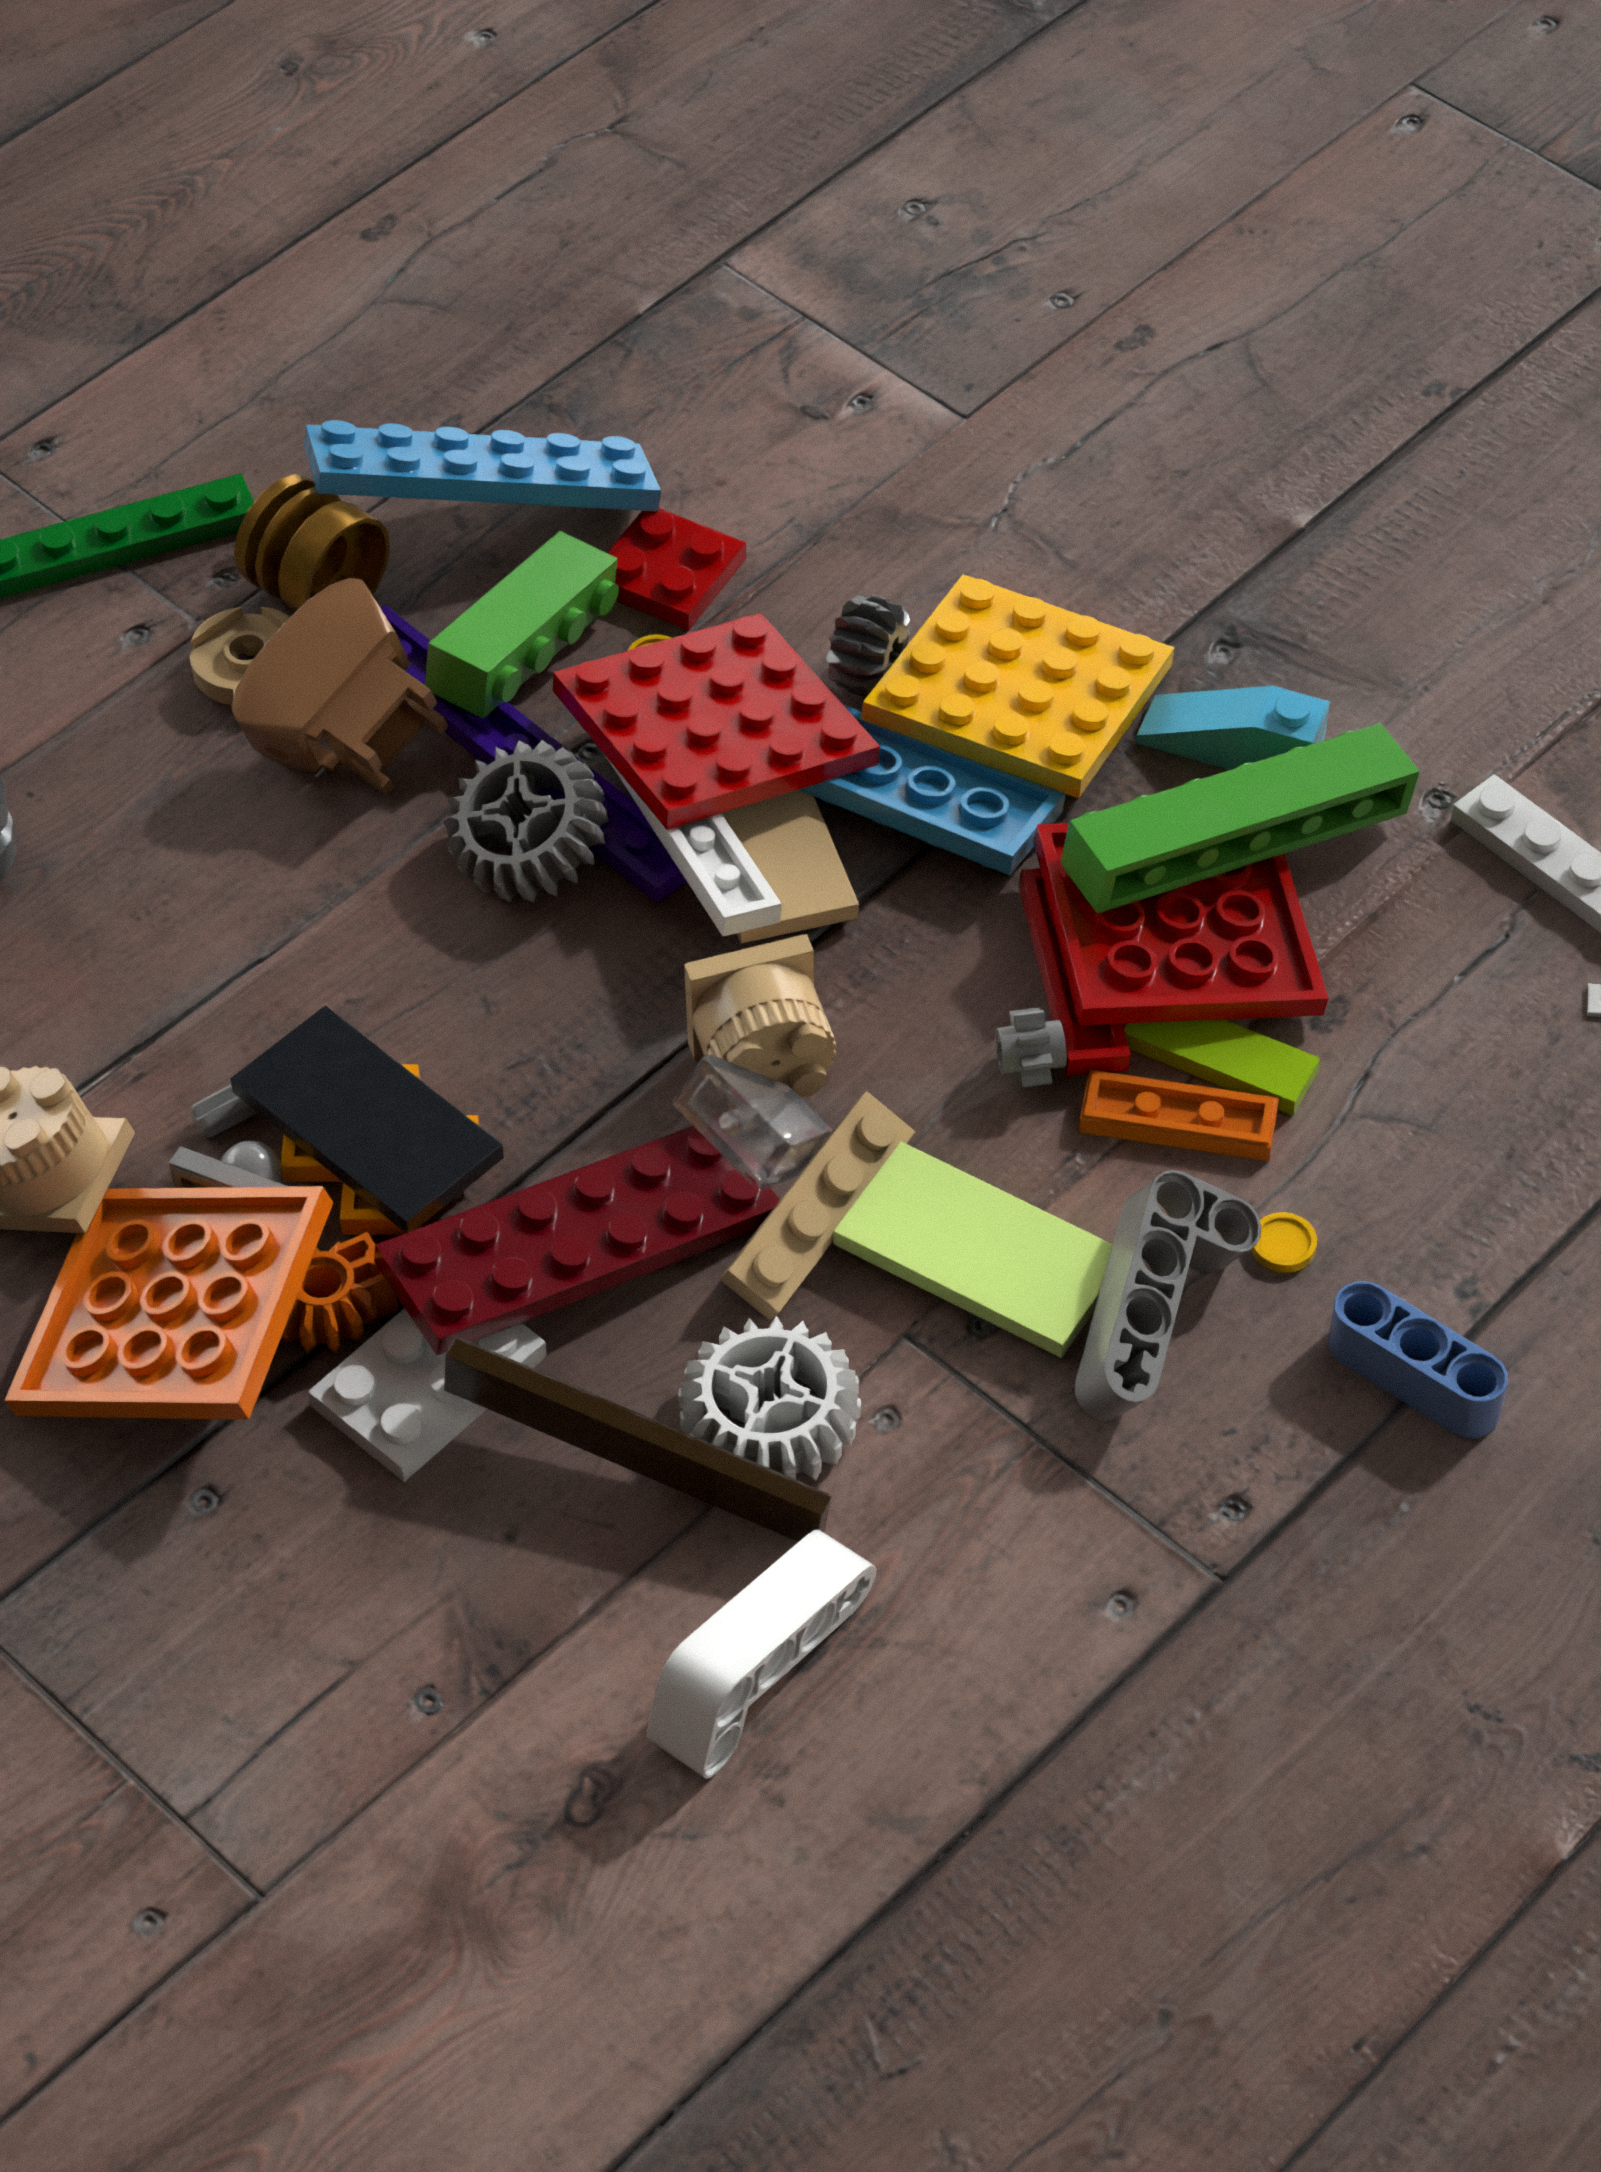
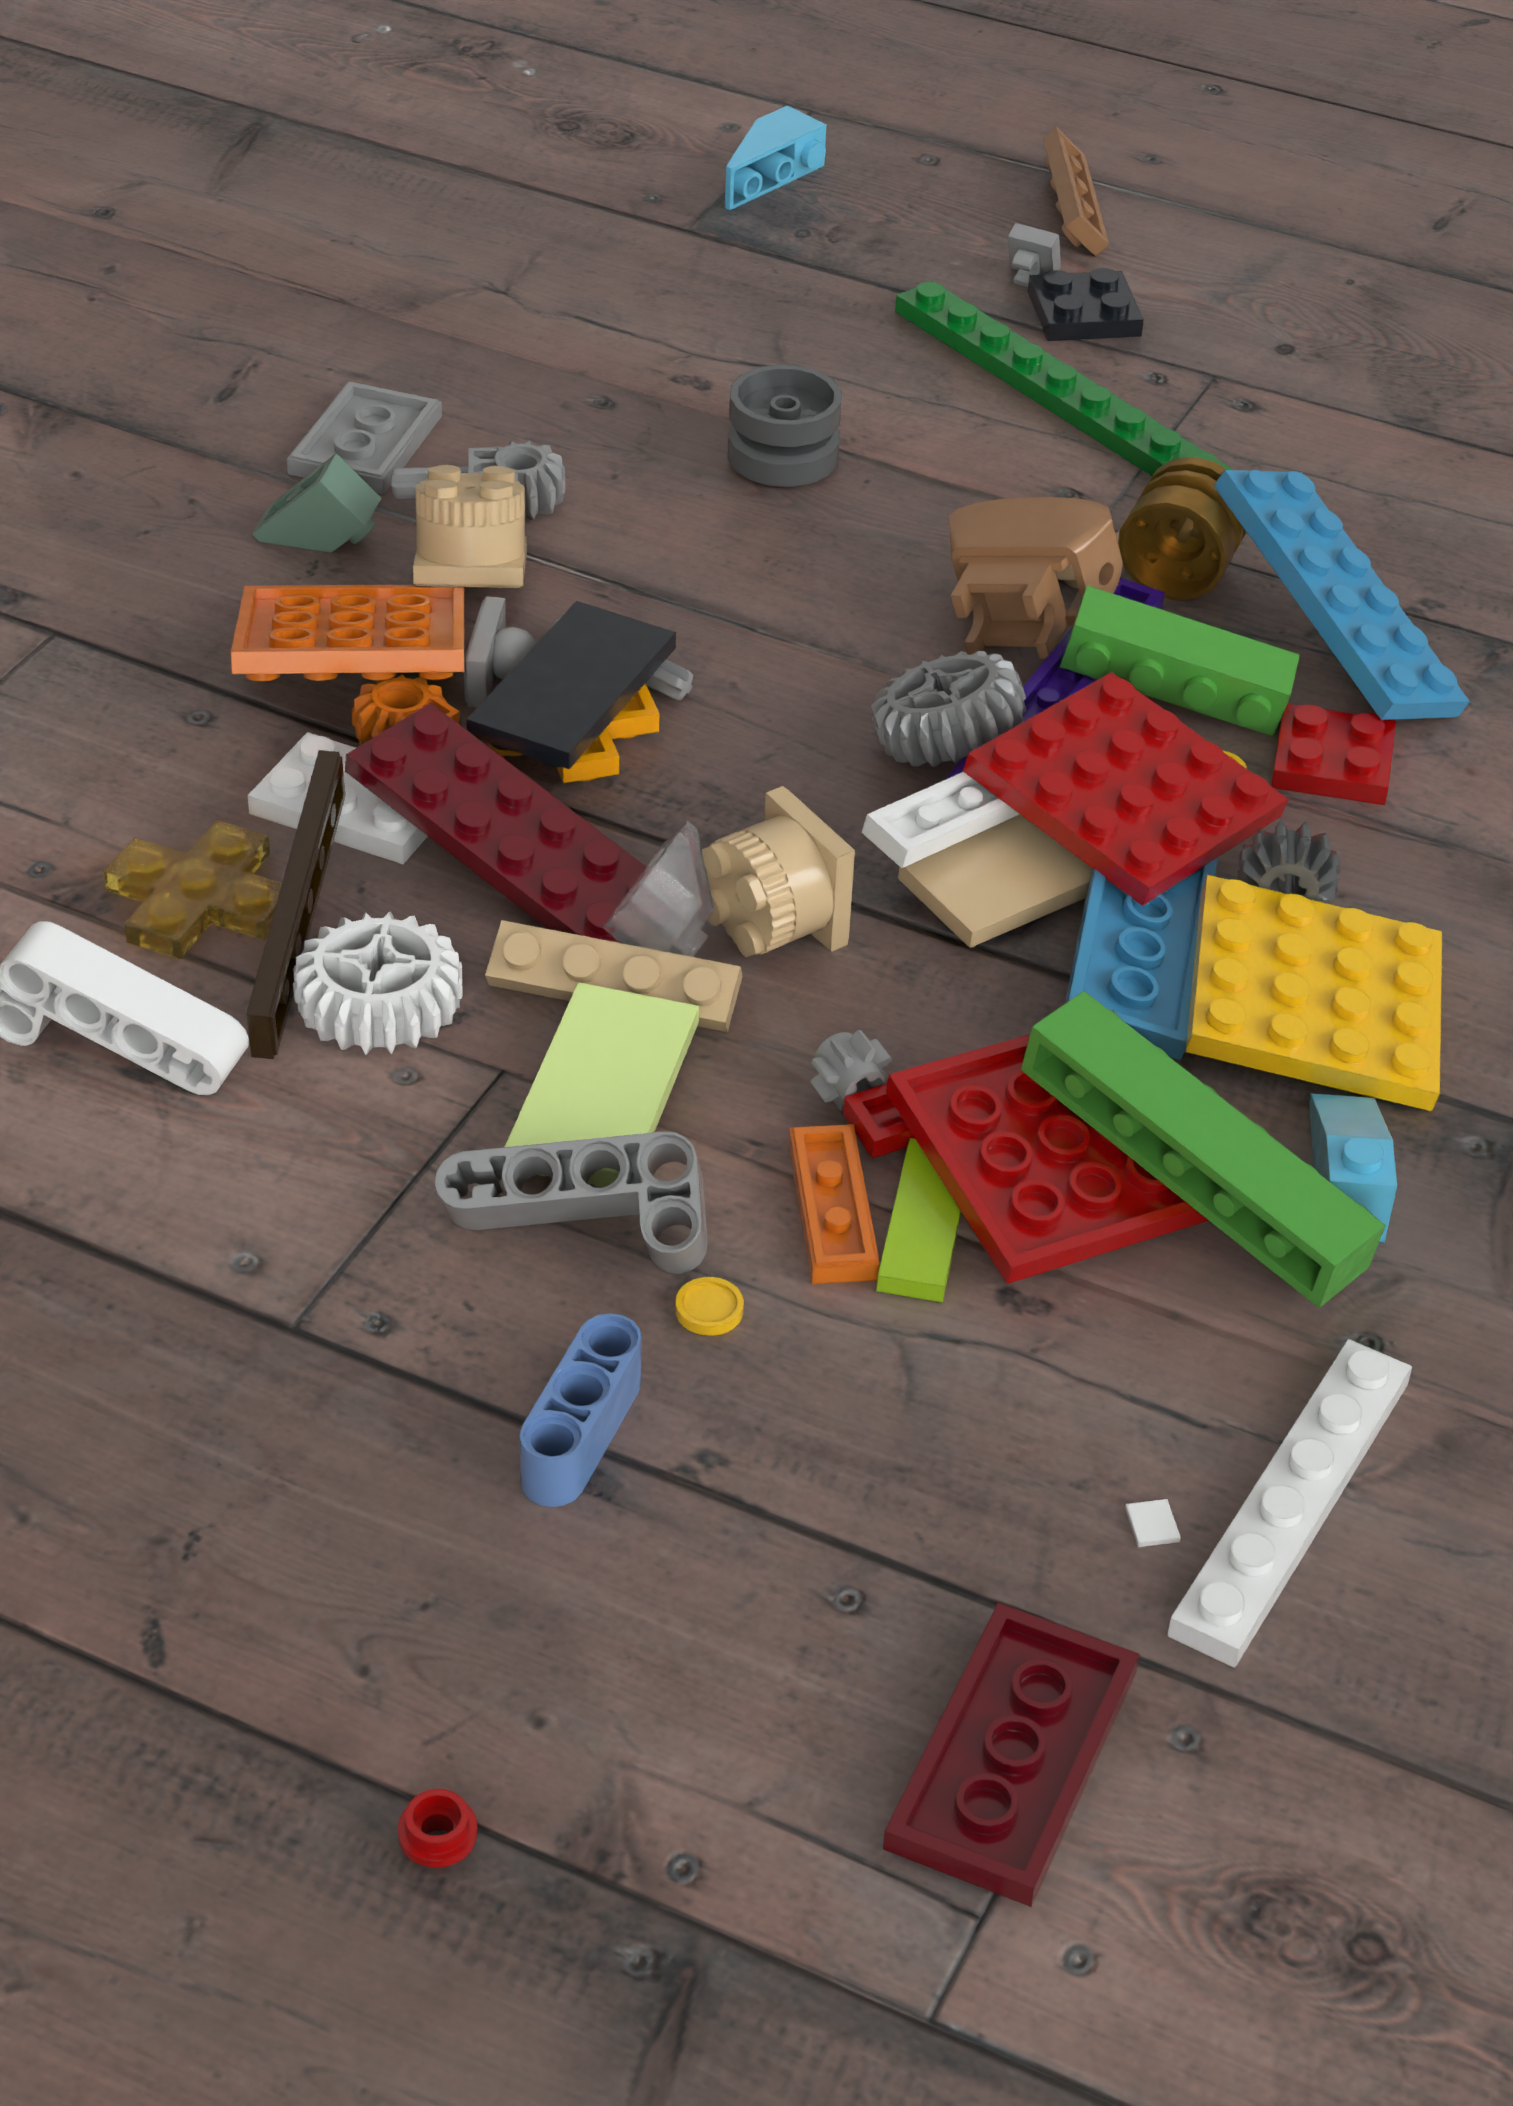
camera: 70 degrees right, 10 degrees down
(533, 1547) = (195, 888): none -> clear yellow plate

